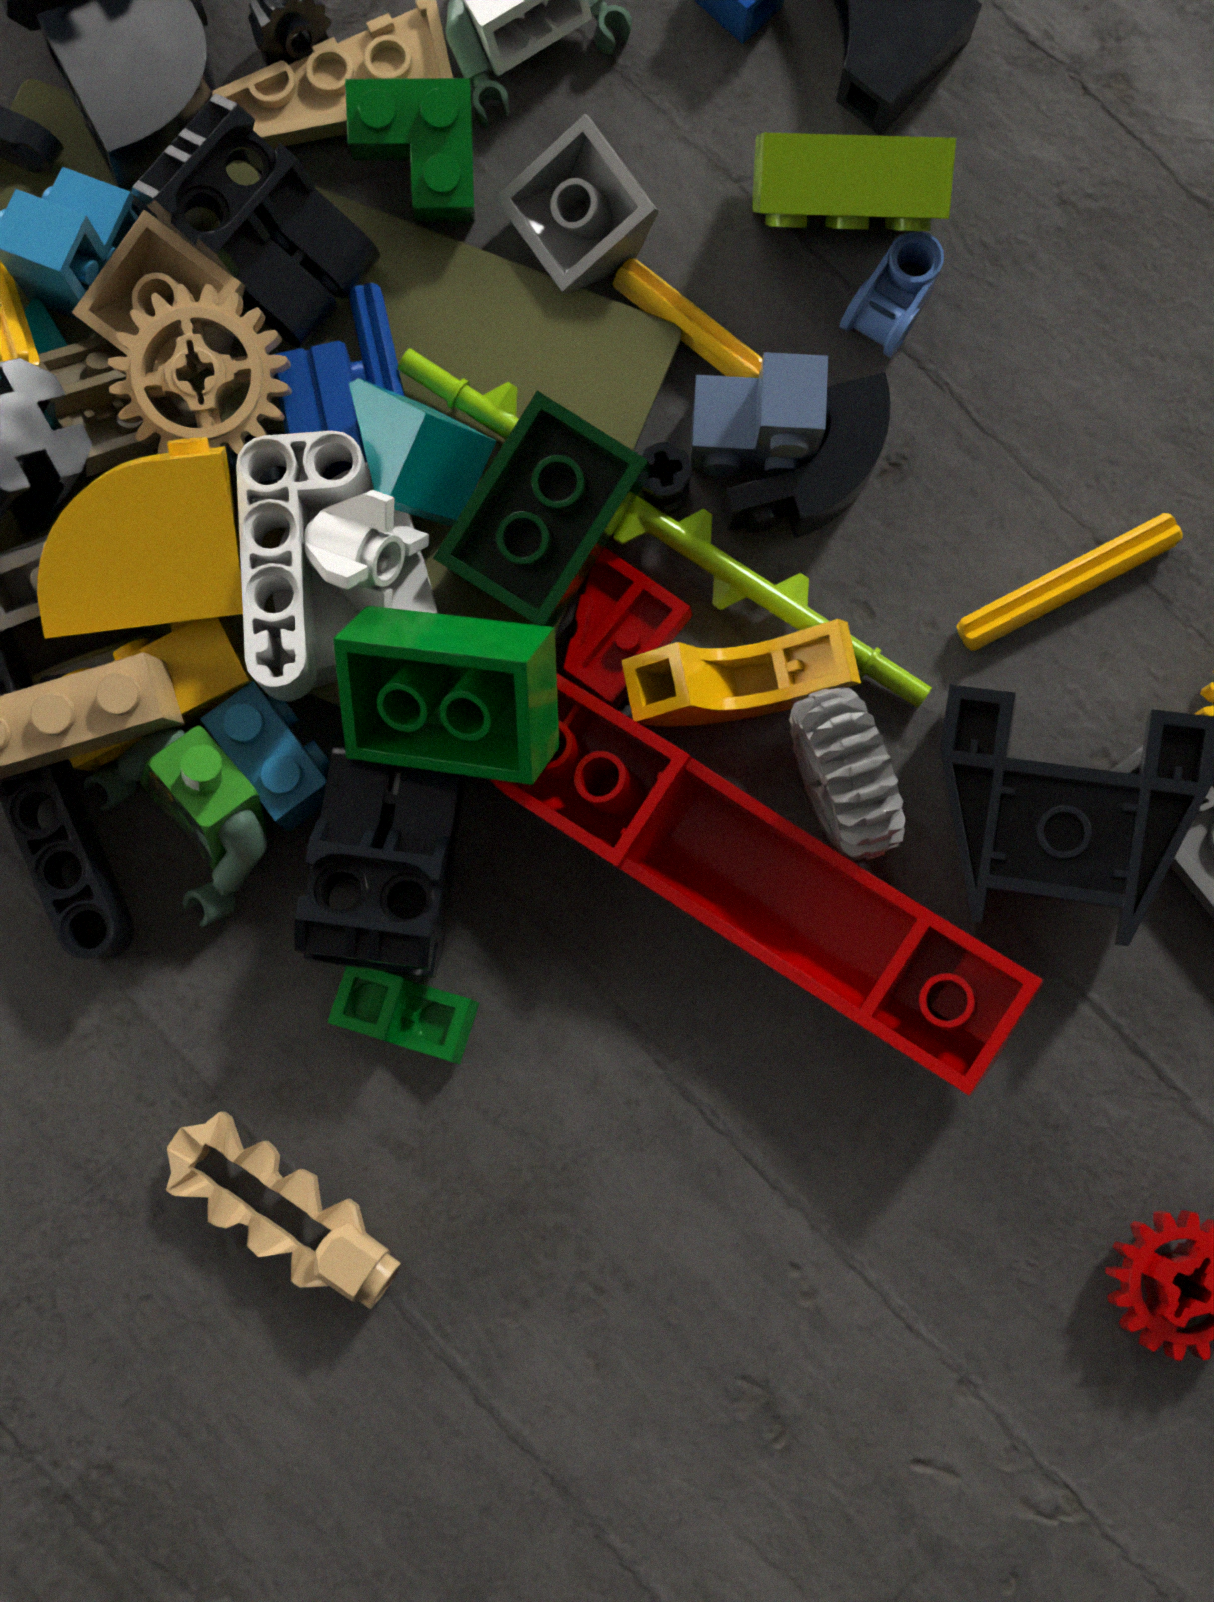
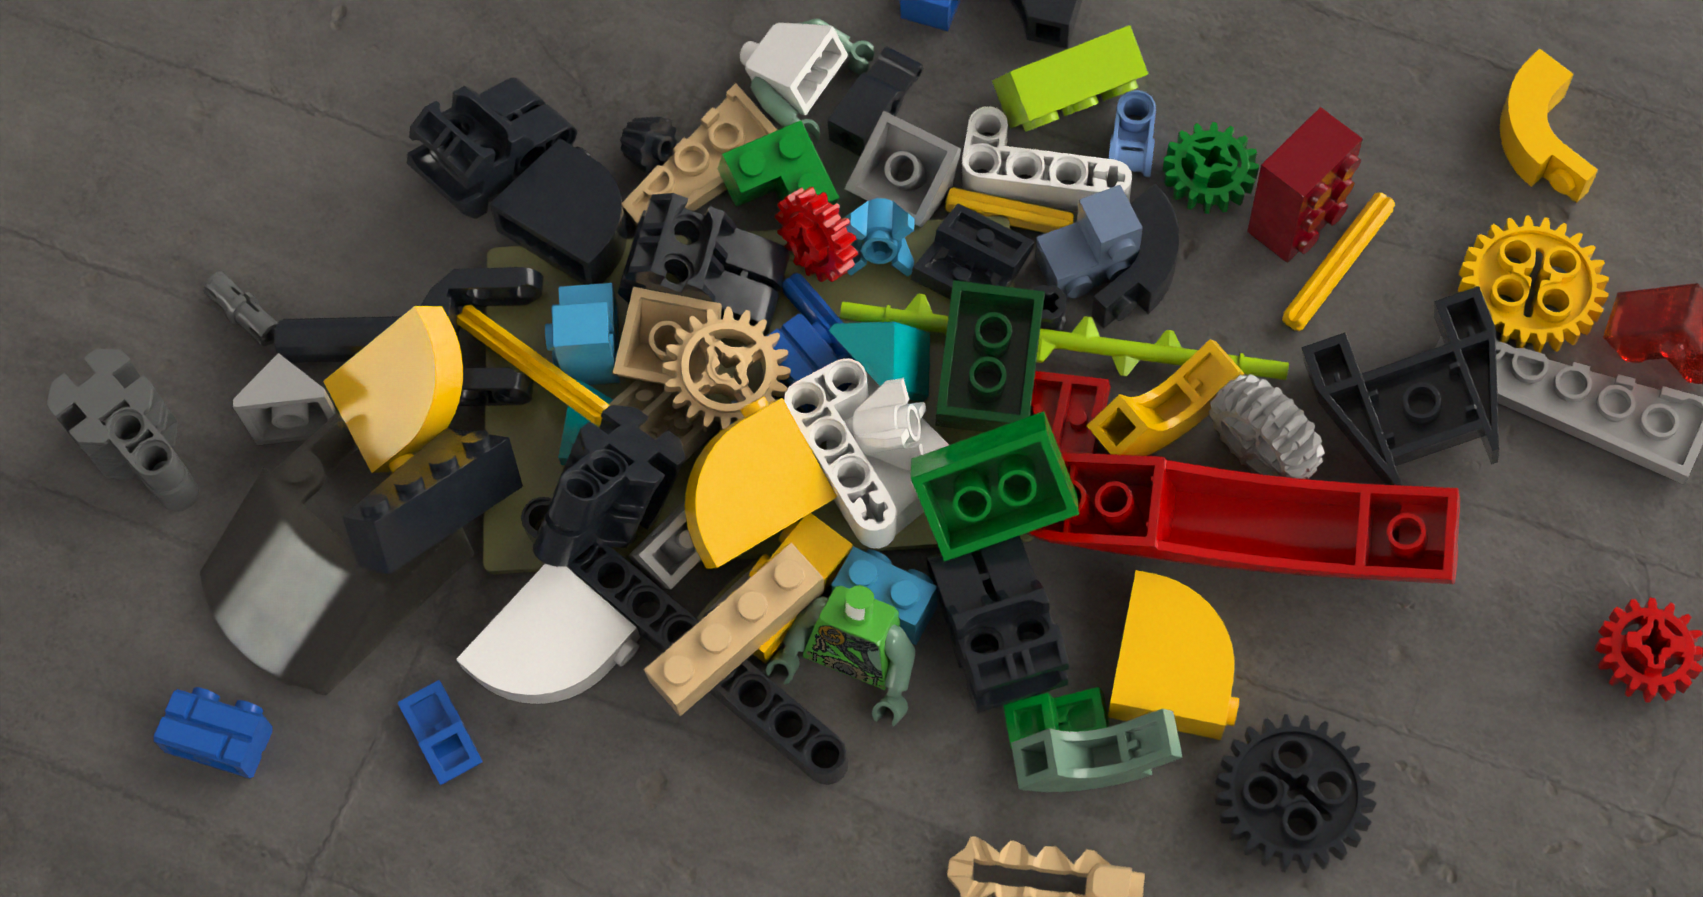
camera: 20 degrees left, 15 degrees down
(413, 243) = (816, 234): none -> red gear
(416, 1087) = (1097, 757): none -> sand green arch
(500, 281) = (881, 235): none -> dark azure brick
(578, 1009) = (1174, 659): none -> yellow brick
(583, 1274) = (1267, 824): none -> black gear
(597, 85) = (869, 96): none -> black piece
(606, 363) = (973, 251): none -> black slope
(764, 288) = (1044, 166): none -> white beam
(972, 386) = (1210, 167): none -> green gear
(1074, 464) = (1304, 185): none -> dark red brick

